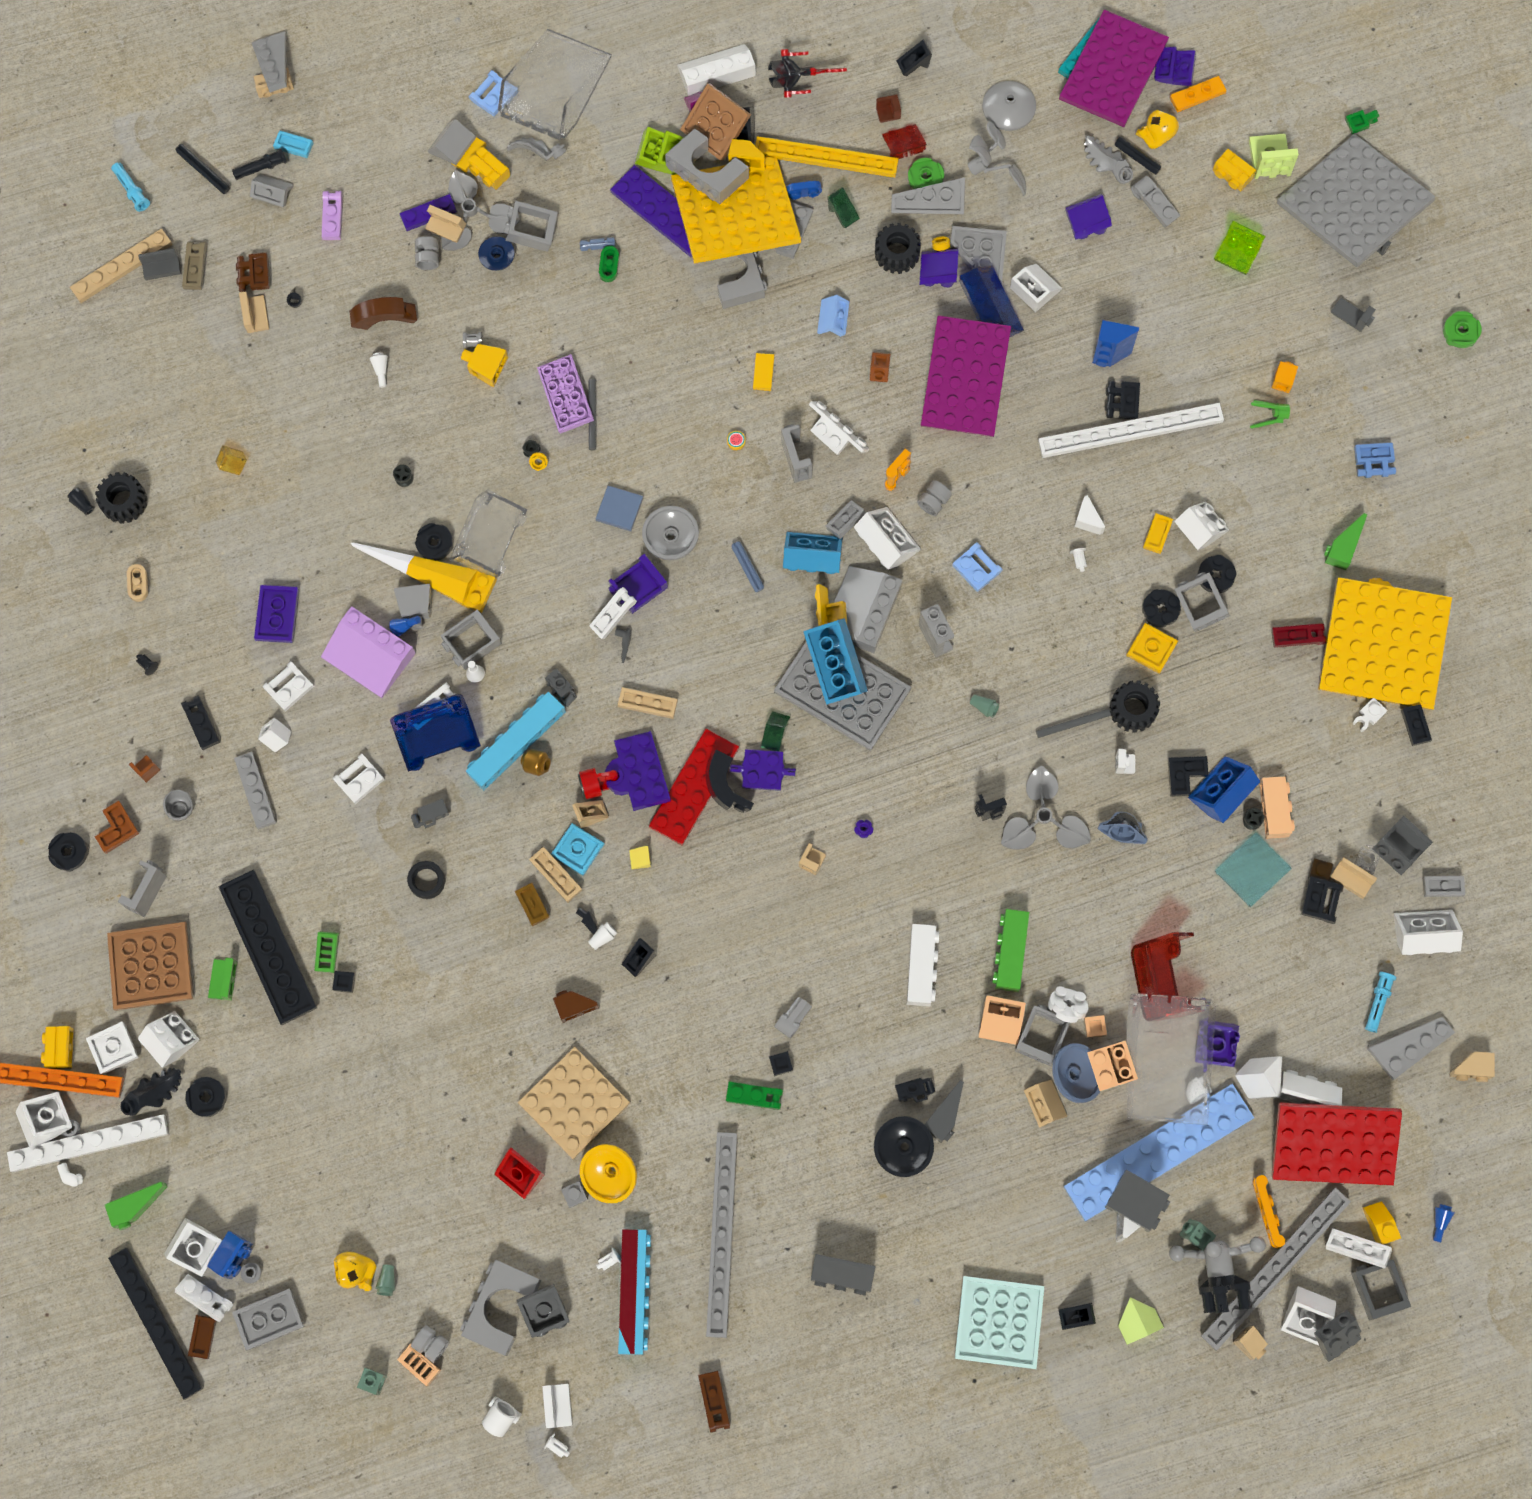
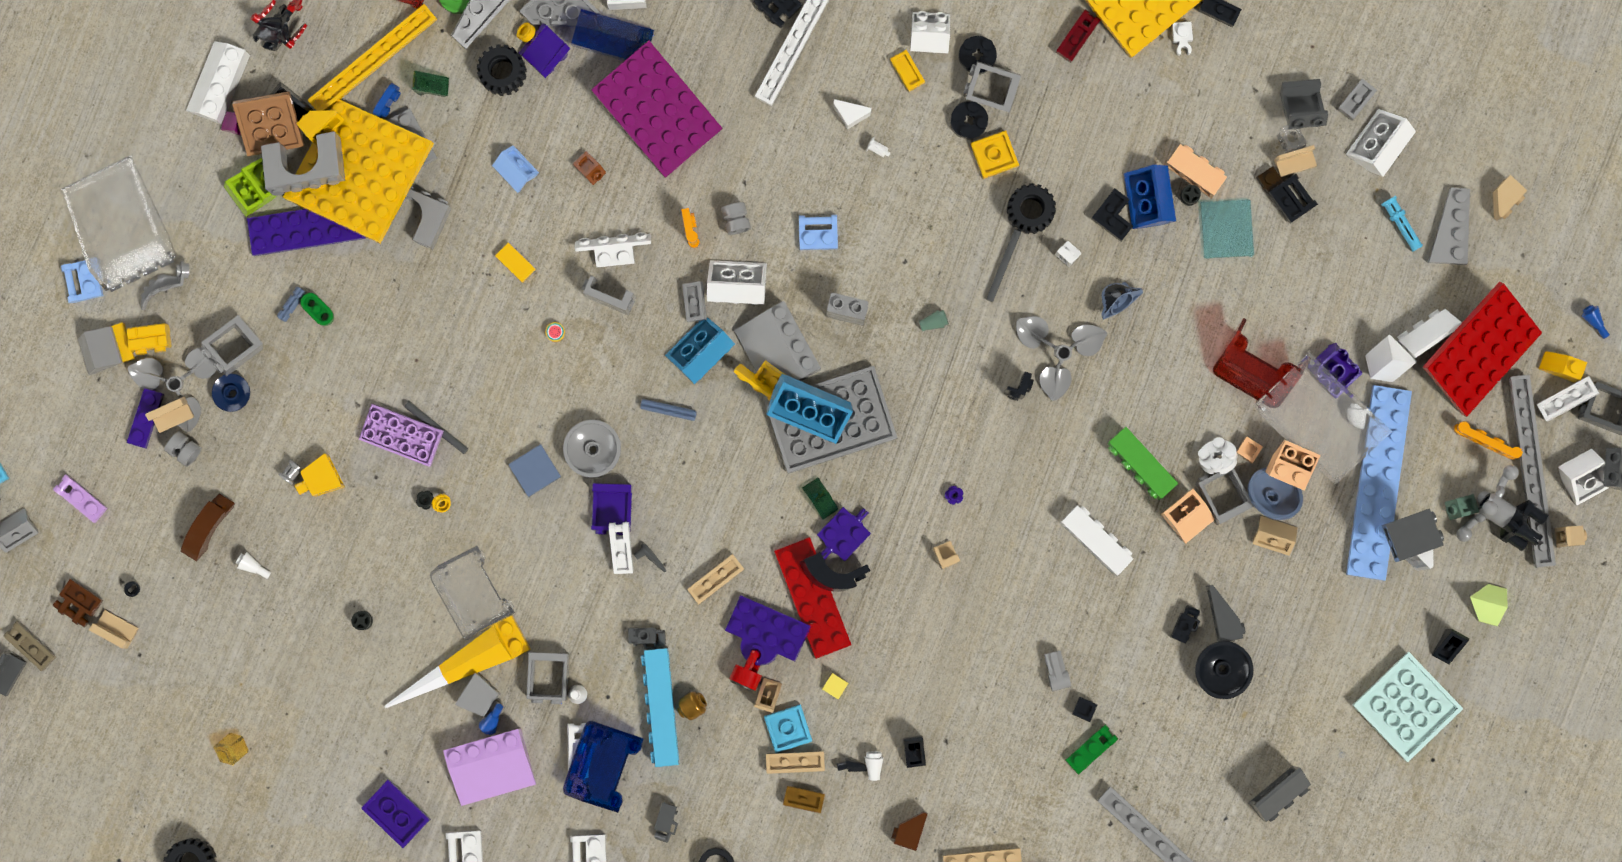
camera: 50 degrees left, 10 degrees up
(424, 538) = (432, 631): black plate -> none

